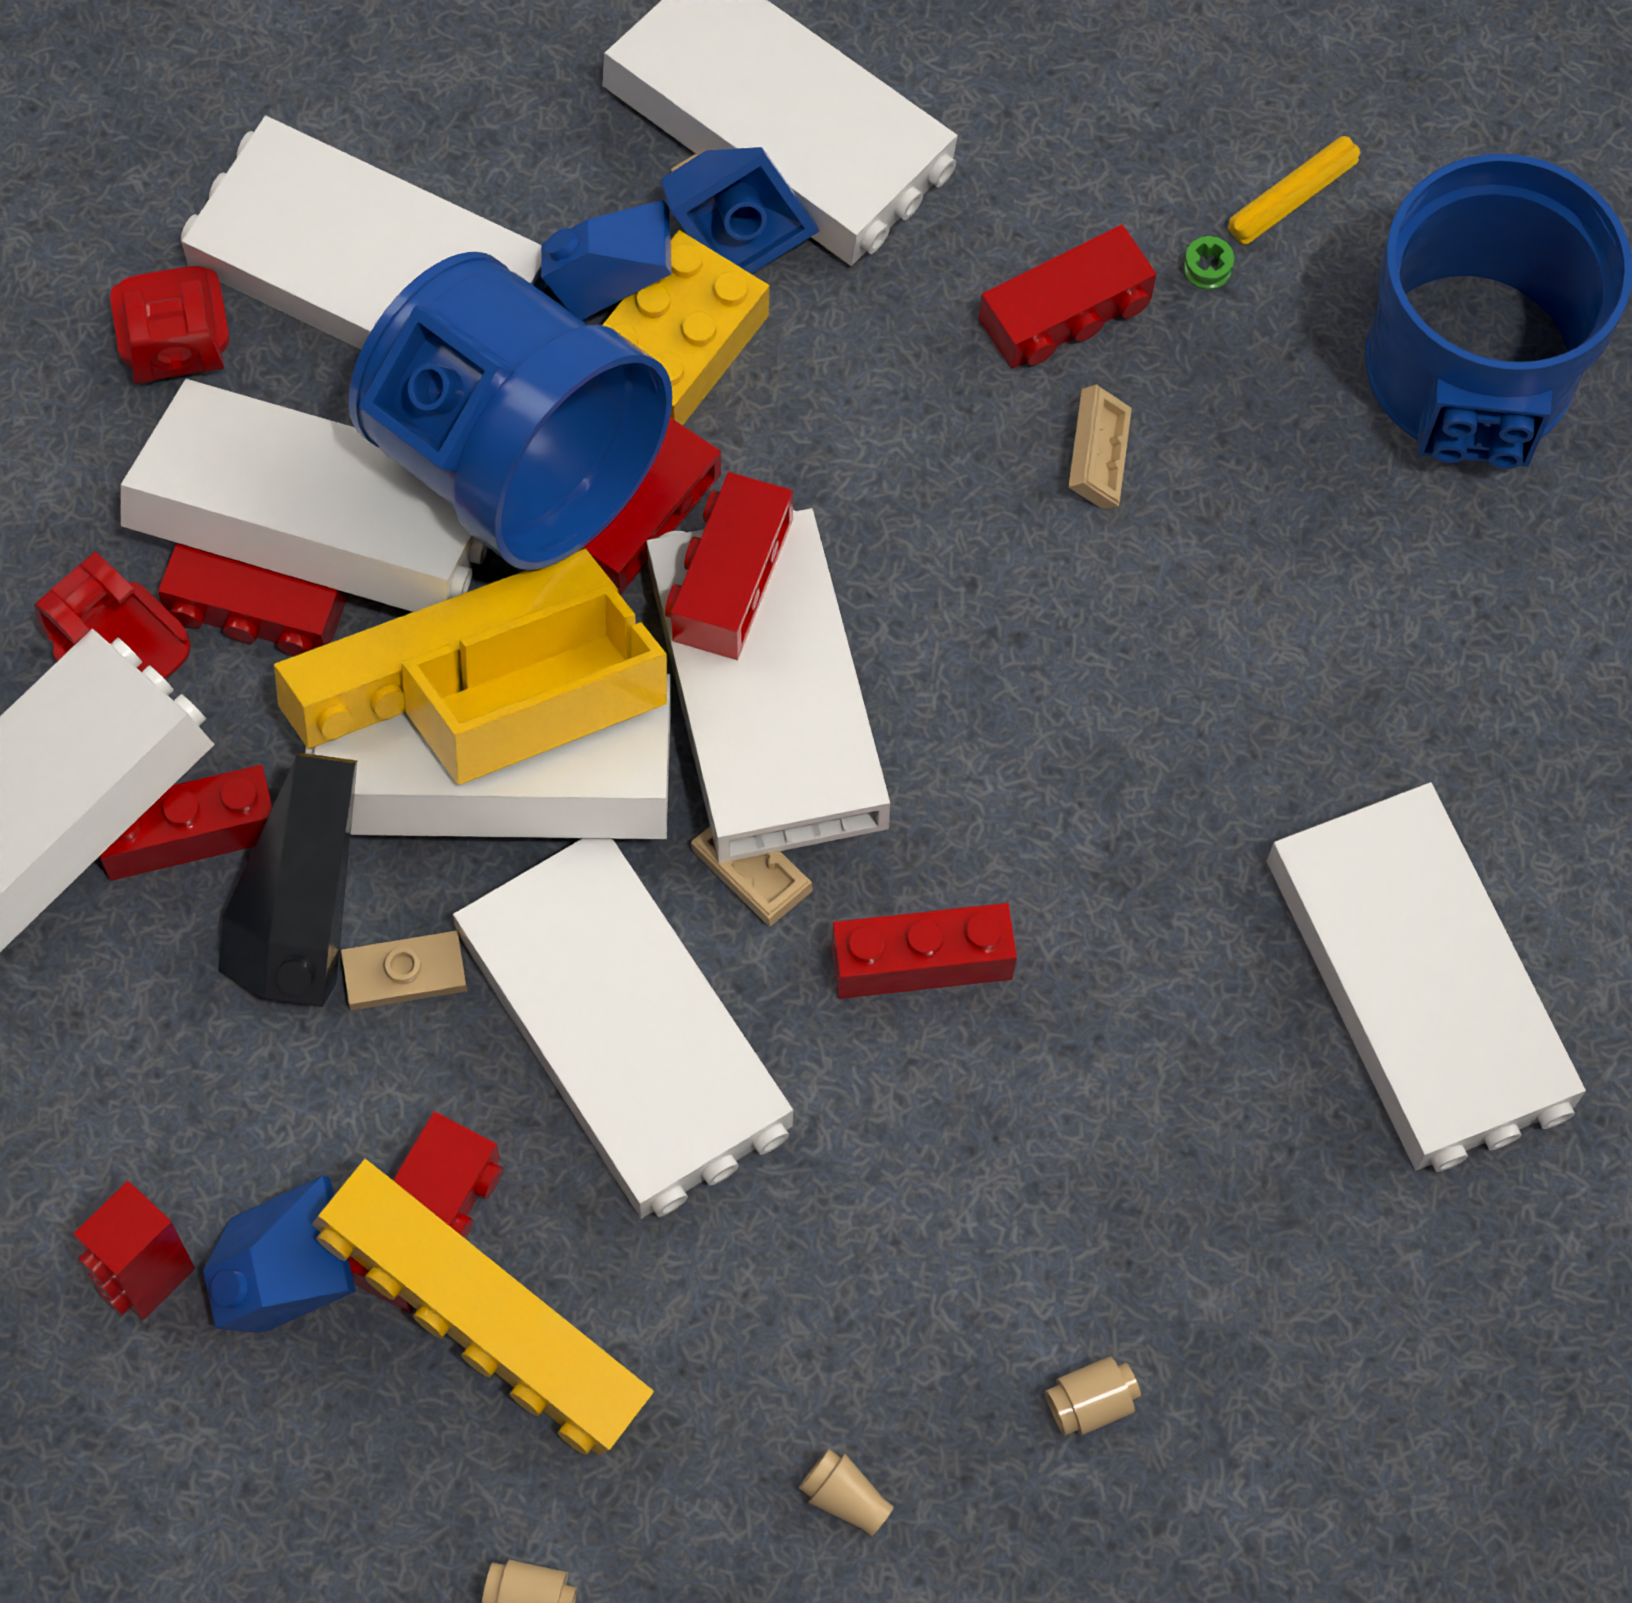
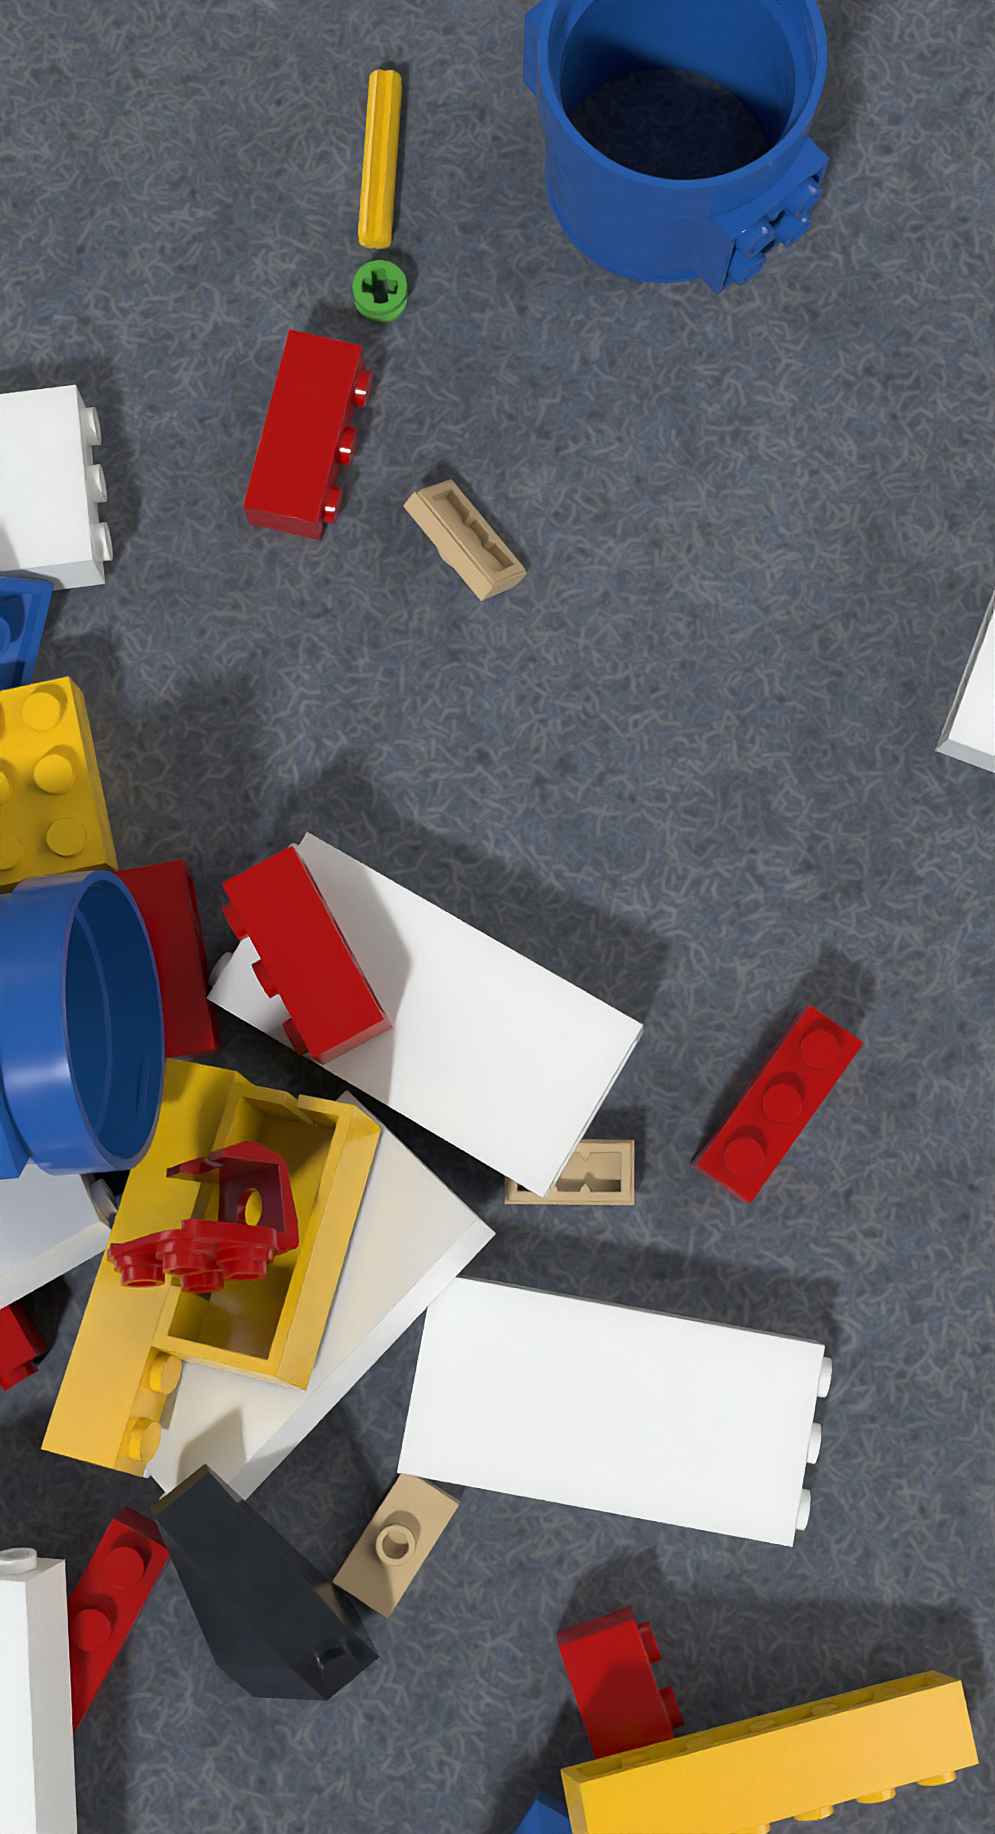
camera: 45 degrees left, 15 degrees up
(498, 625) = (223, 1249): none -> red piece

